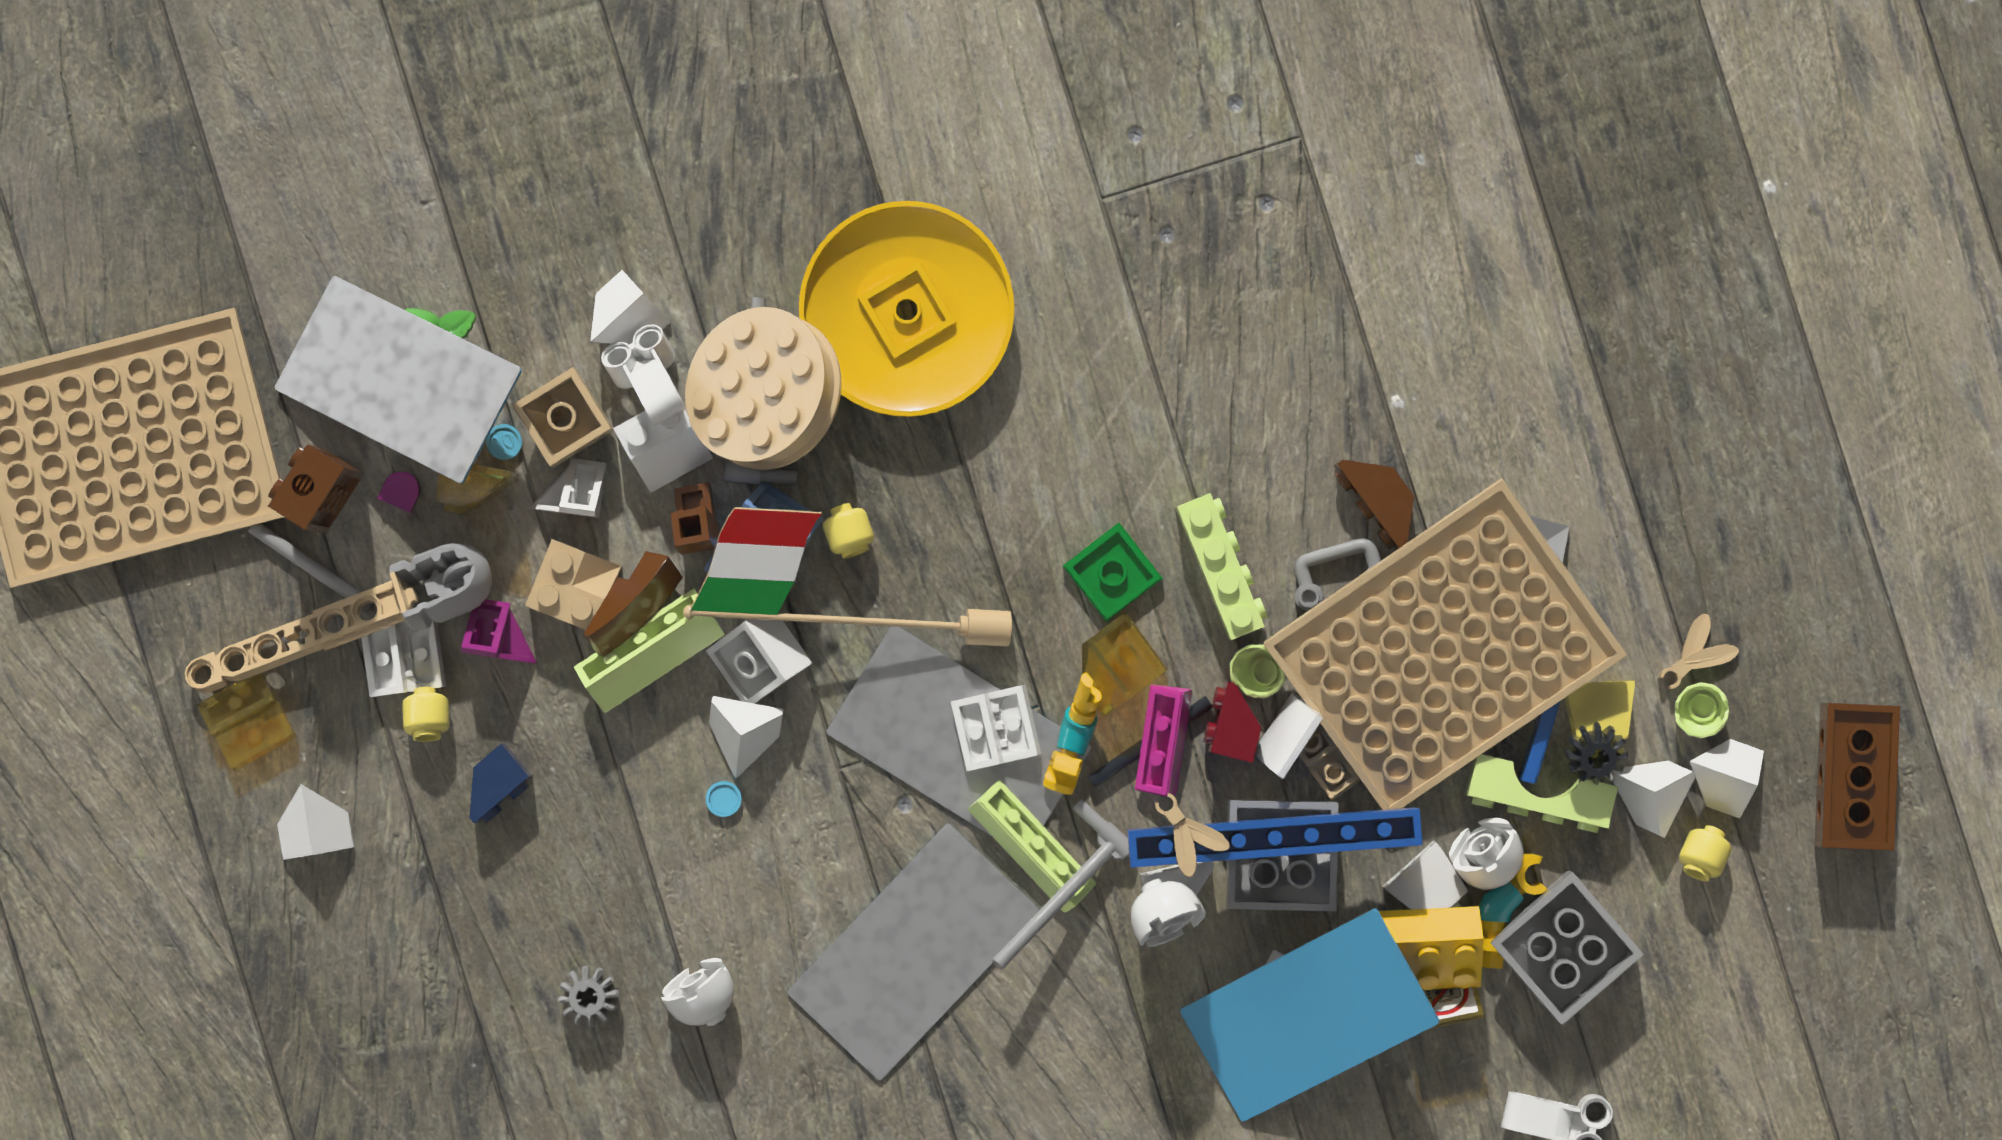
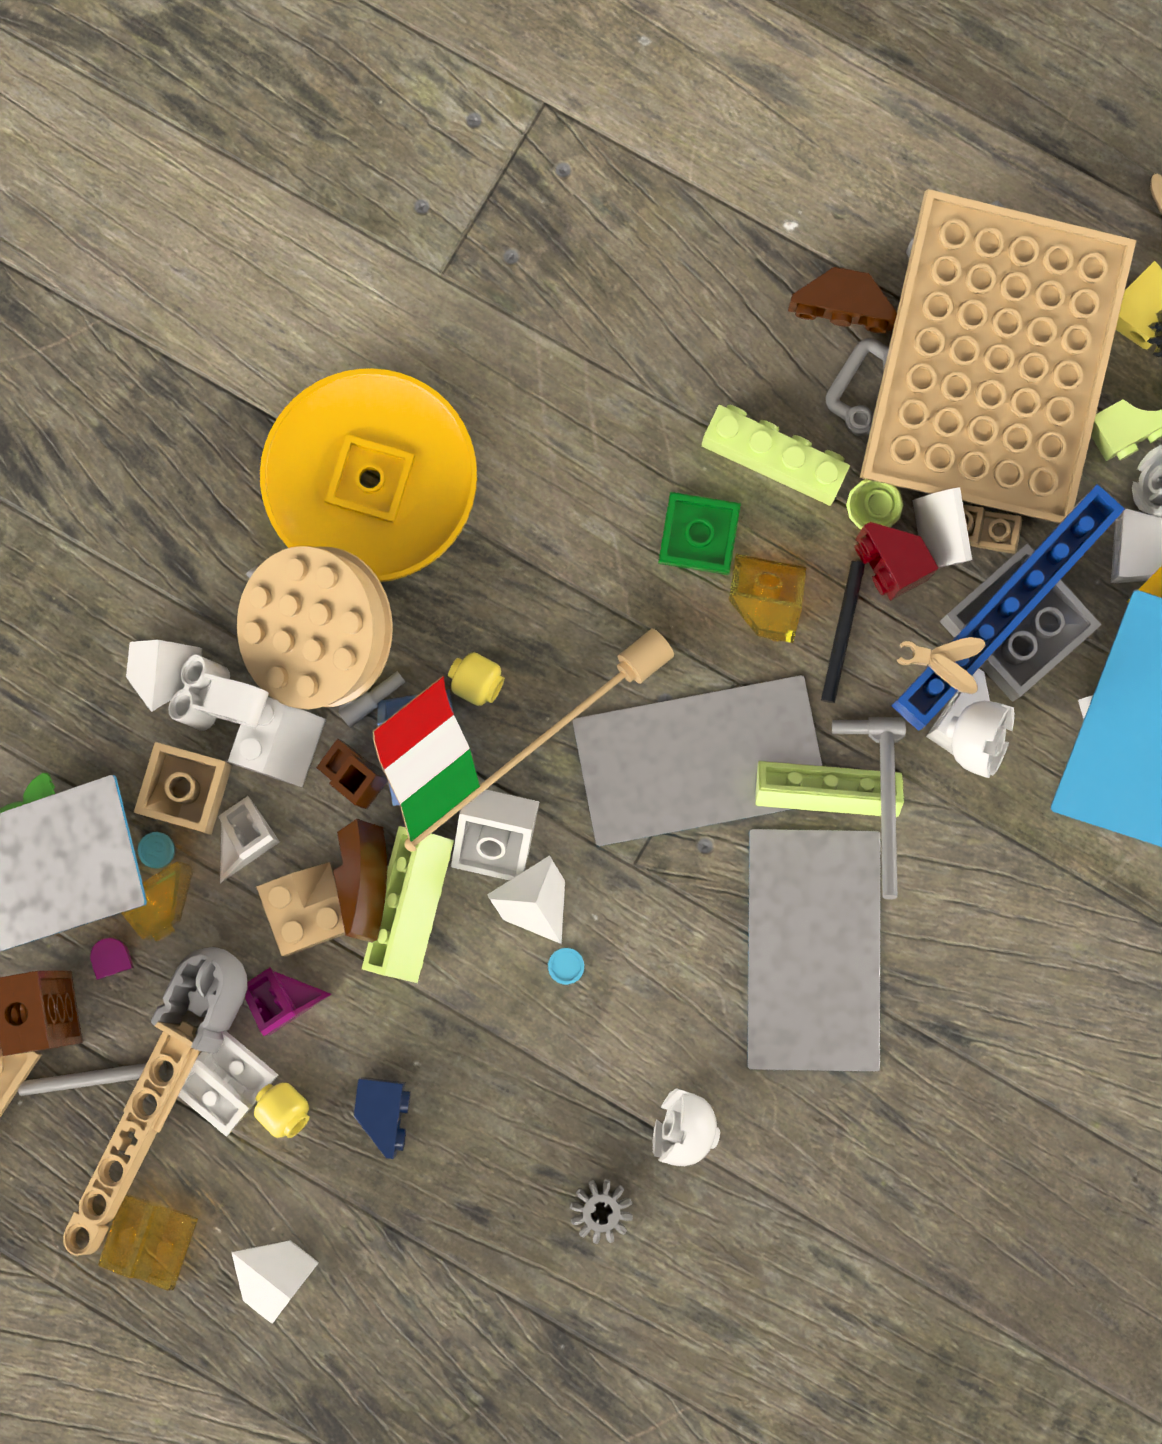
camera: 45 degrees left, 5 degrees down
(996, 727) = (720, 725): white slope -> none
(1073, 738) = (785, 678): yellow piece -> none
(1163, 740) = (852, 620): dark pink slope -> none
(1538, 744) = (1128, 375): blue tile -> none

